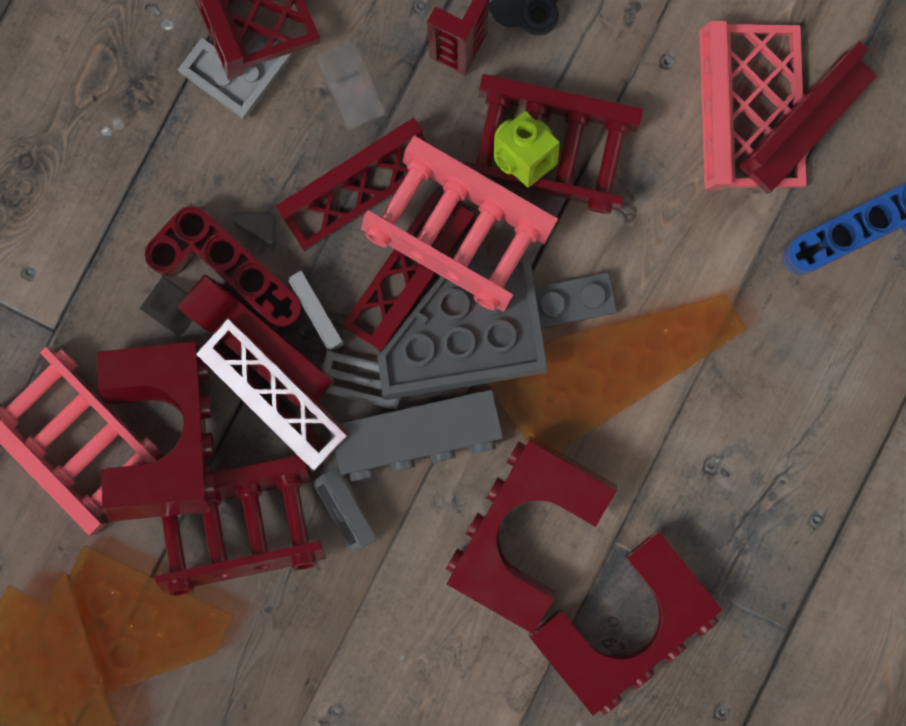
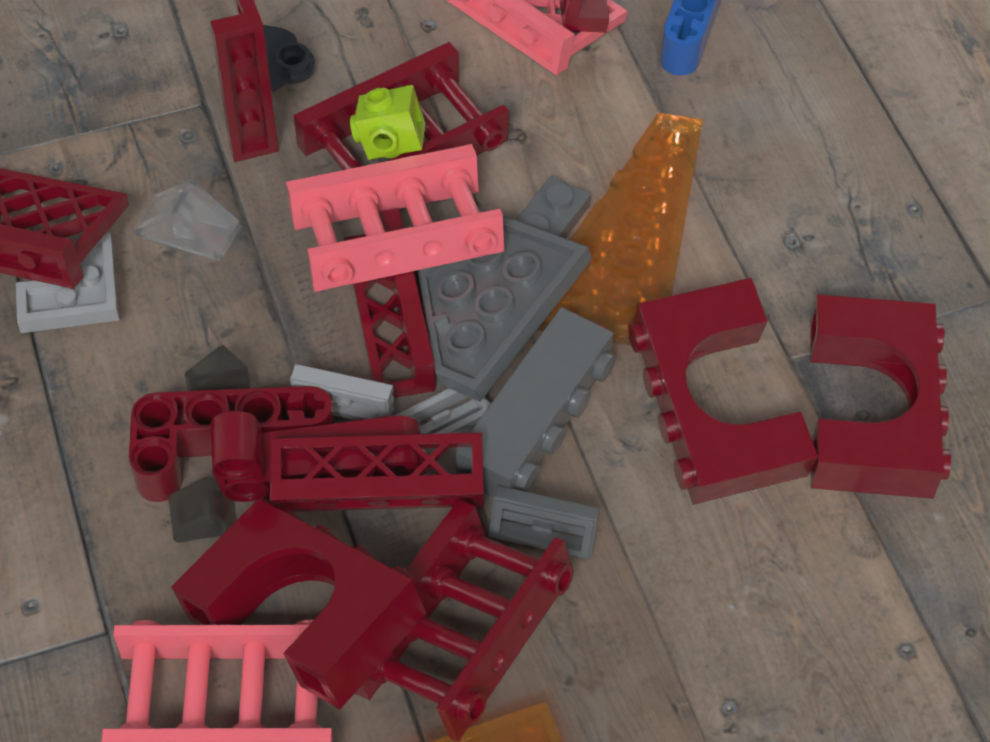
camera: 50 degrees left, 30 degrees down
(342, 176) = (253, 282): dark red fence -> none

